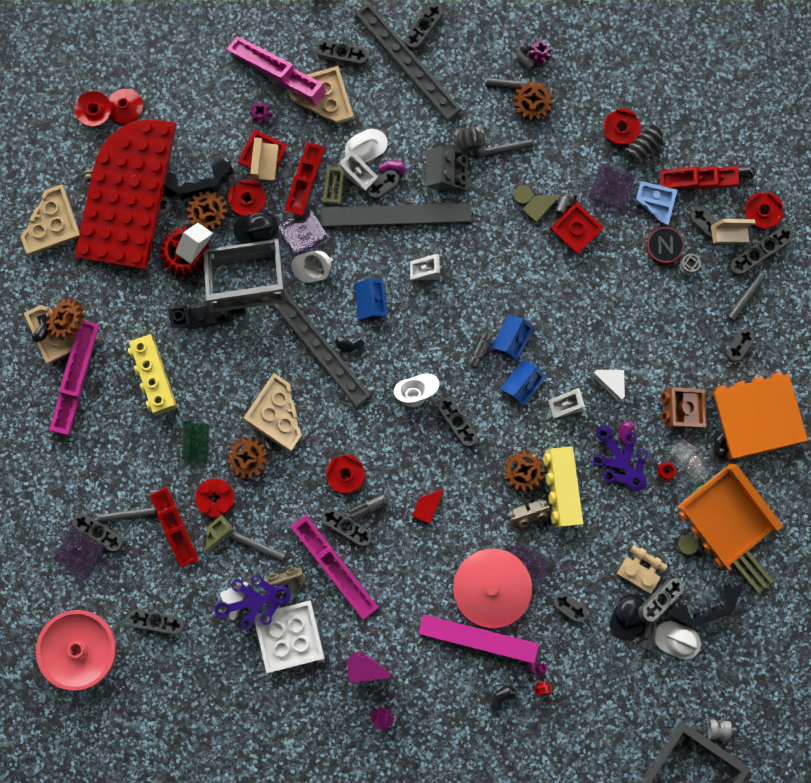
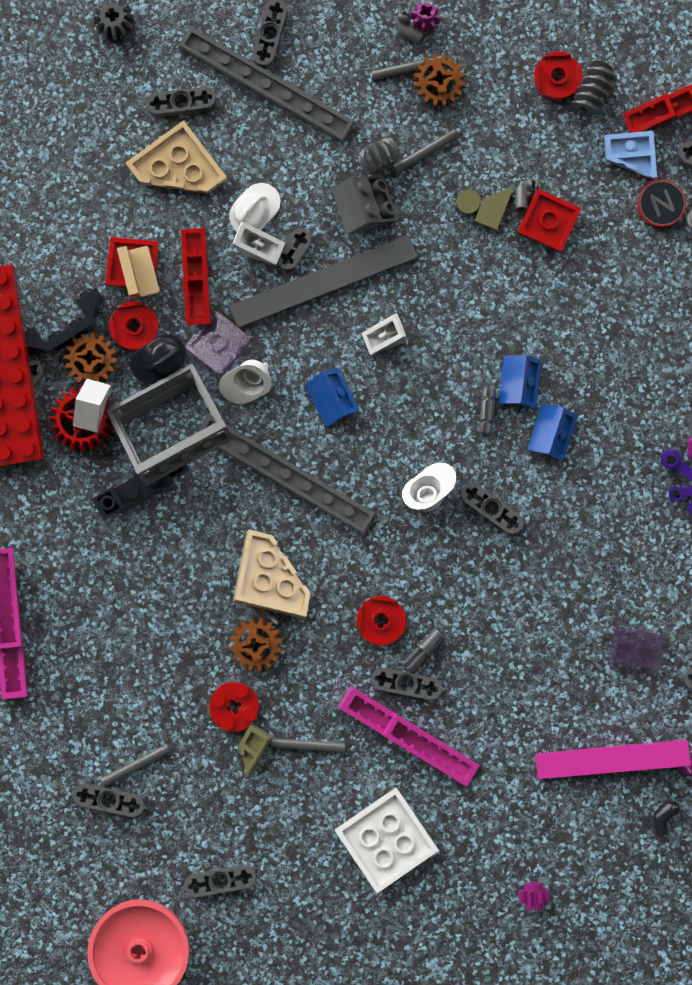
camera: 25 degrees left, 5 degrees up
(79, 552) = (96, 833): clear purple plate -> none
(153, 375) = (102, 585): light yellow brick -> none
(174, 526) = (198, 759): red slope -> none
(195, 442) = (185, 647): clear green panel -> none
(232, 596) = (304, 819): white slope -> none
(256, 600) = (332, 815): dark purple plant -> none
(258, 117) = (110, 207): magenta gear -> none
(277, 70) = (111, 152): dark pink slope -> none
(290, 577) = (363, 767): dark tan hinge -> none
(332, 201) = (239, 292): olive tile -> none
(347, 345) = (325, 463): black arm -> none
(365, 668) = (497, 847): magenta slope -> none
(396, 165) = (295, 221): magenta arm -> none
(426, 506) = (492, 623): red tile -> none
(492, 588) = (607, 693): coral dish -> none
(528, 482) = (600, 547): dark orange gear -> none
(538, 512) = (626, 582): dark tan hinge -> none
(563, 487) = (647, 542): light yellow brick -> none
(567, 404) = (614, 439): white slope -> none
(611, 186) = (572, 154): clear purple plate -> none
(612, 381) = (660, 394): white slope -> none

